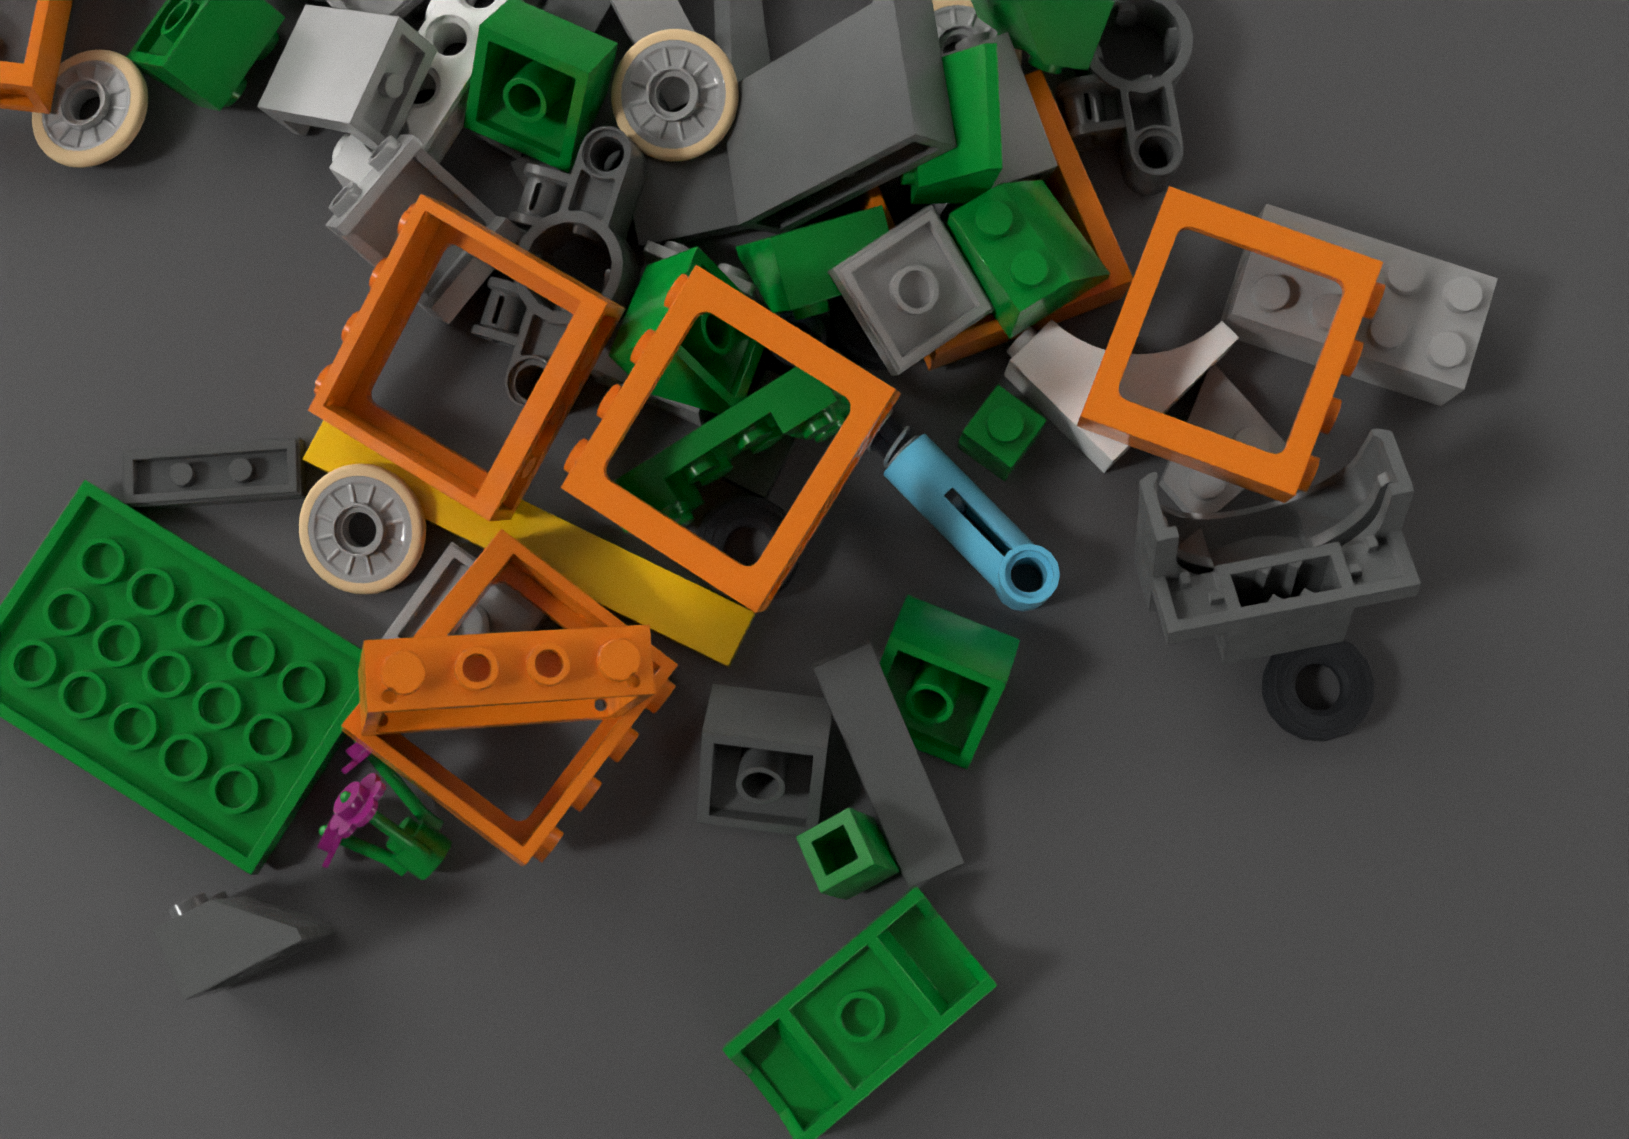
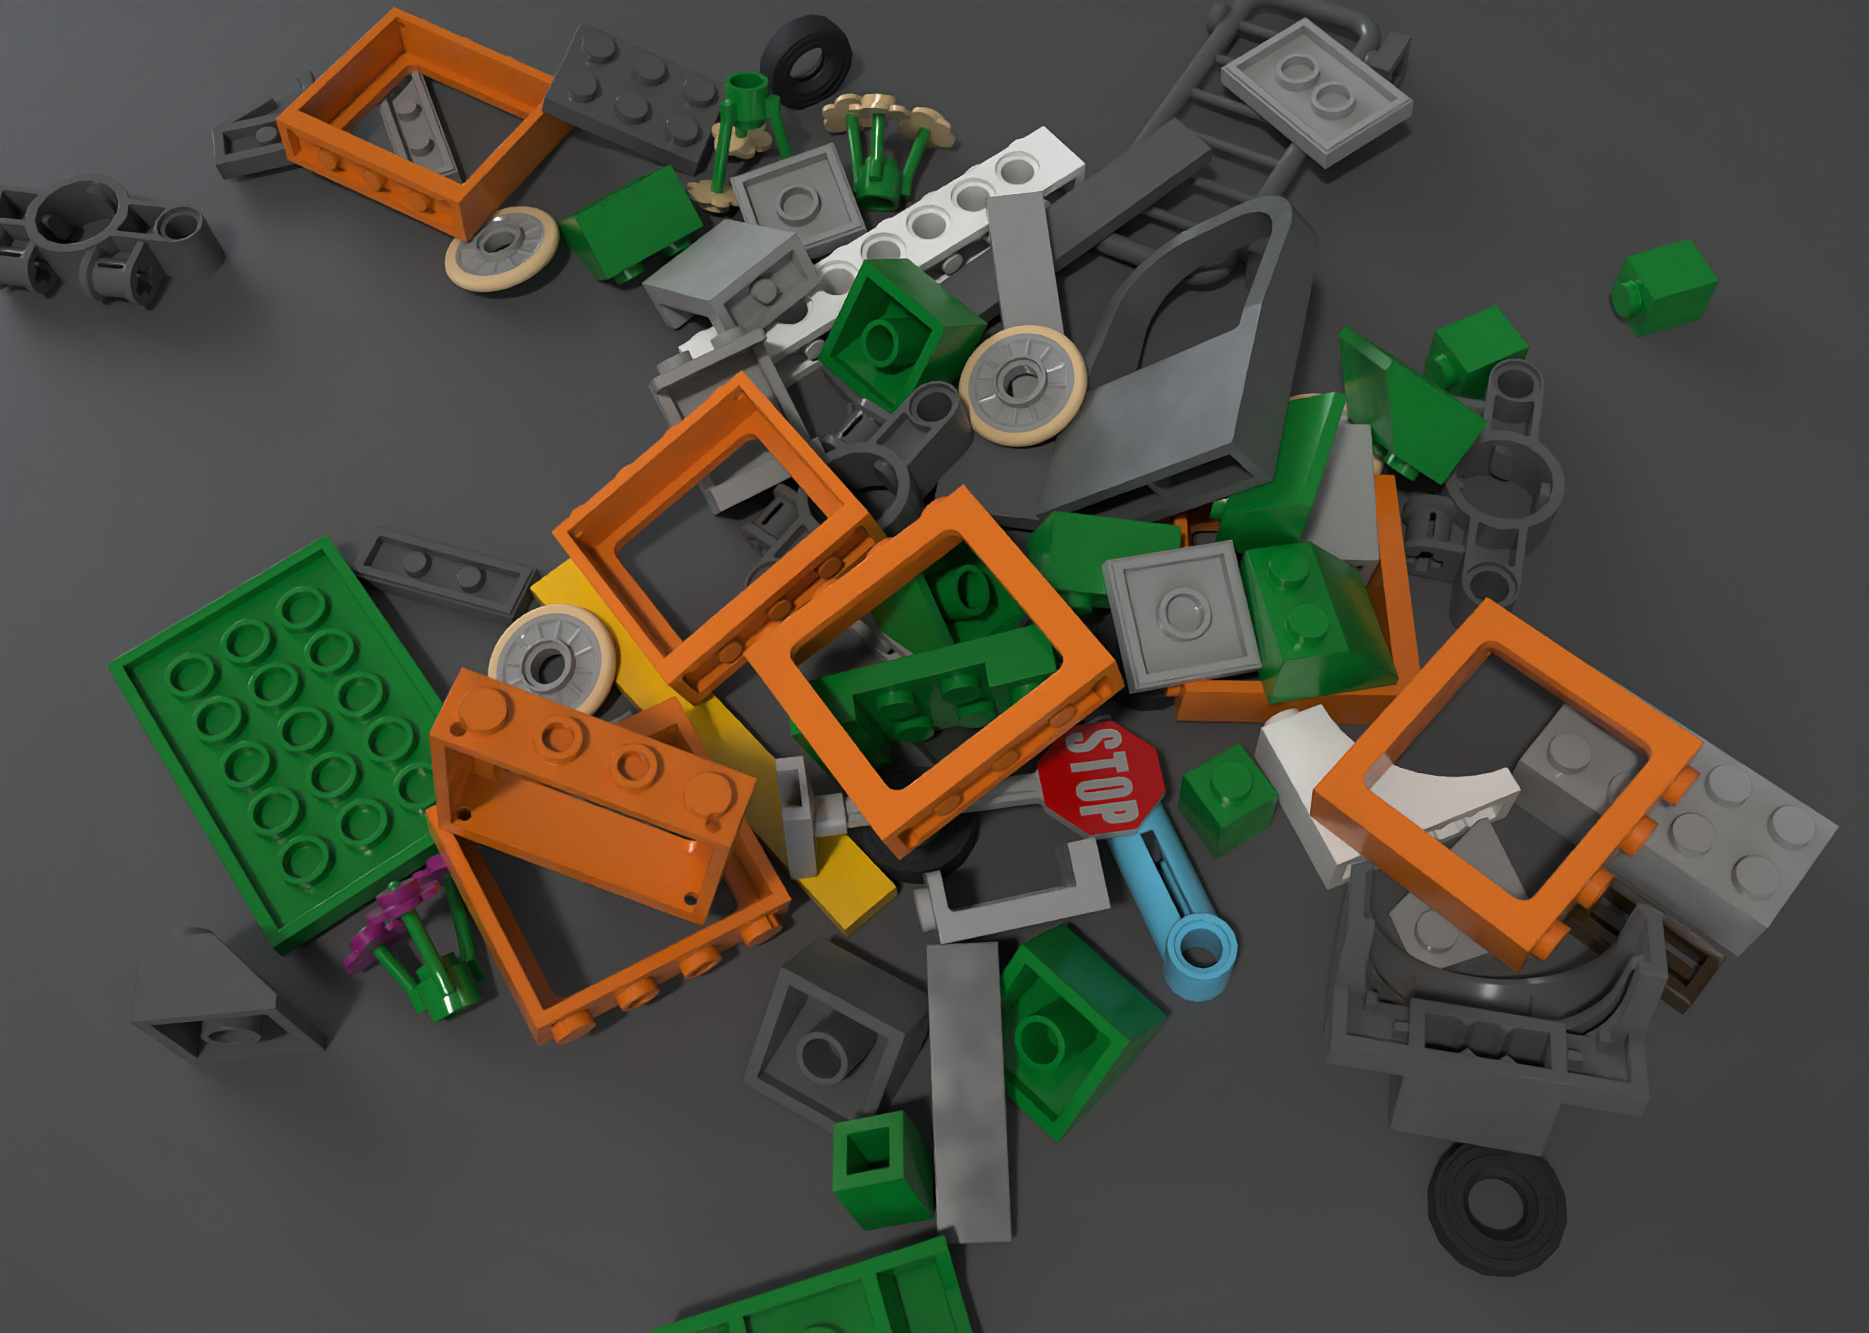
camera: 25 degrees right, 20 degrees down
(869, 600) = (1081, 892): none -> light grey panel
(894, 477) = (1089, 779): none -> piece
(1397, 410) = (1675, 933): none -> dark brown tile

